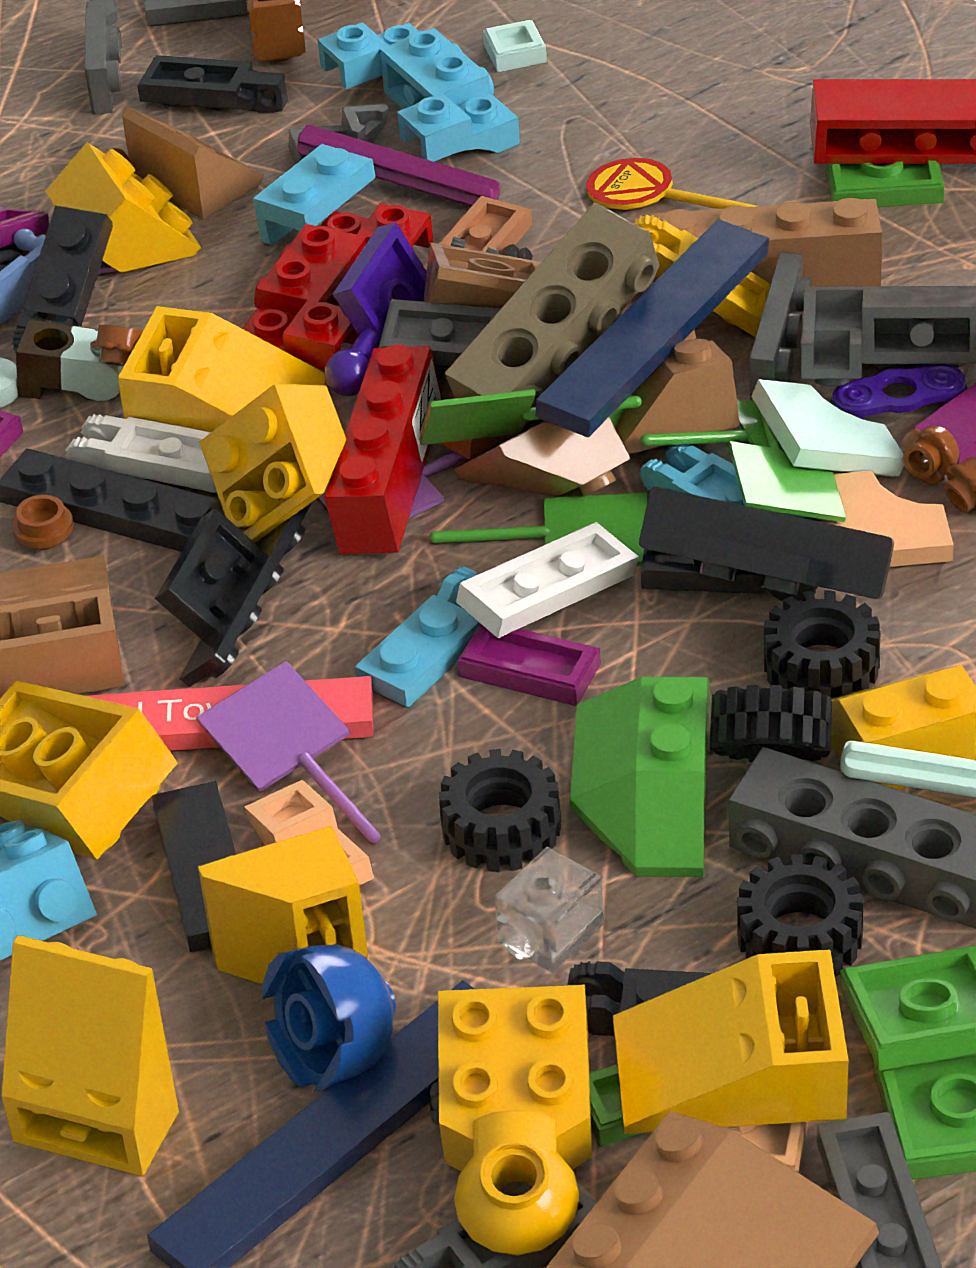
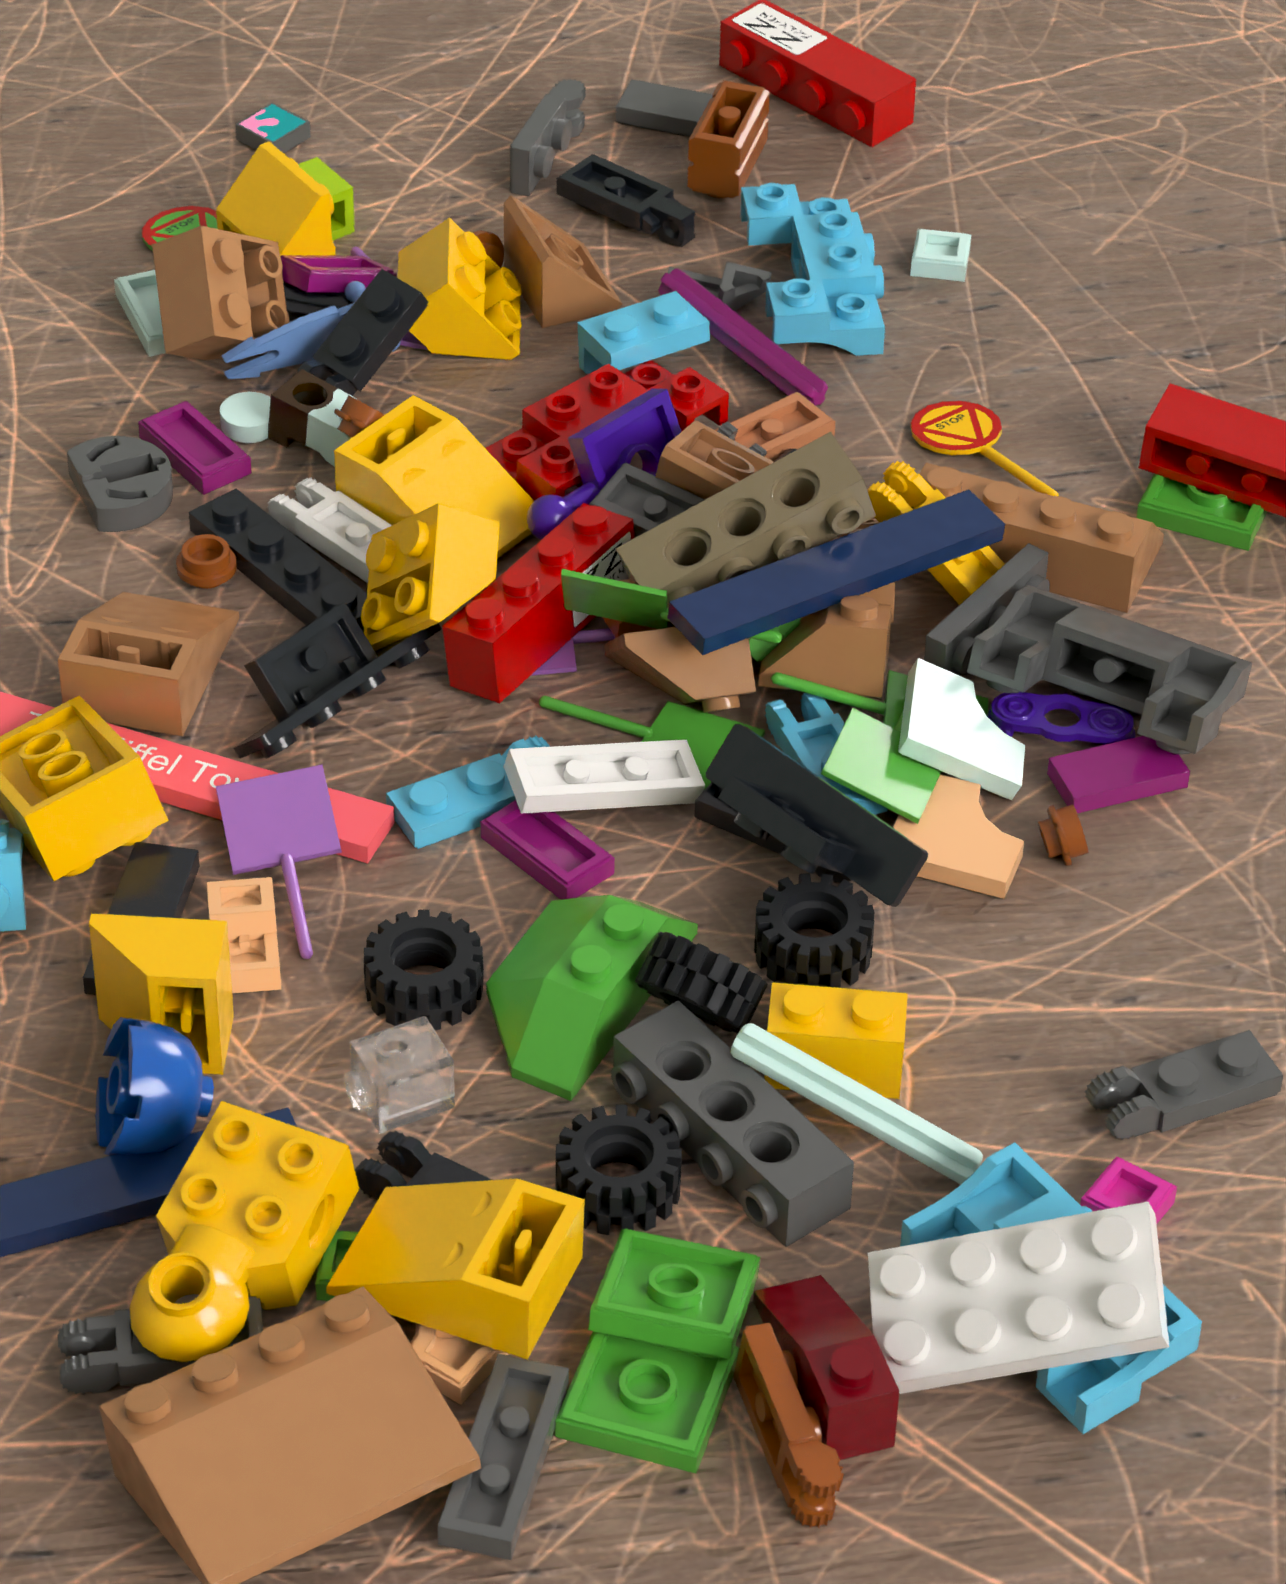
camera: 20 degrees right, 0 degrees up
(929, 453) = (1044, 786): dark orange plate -> none

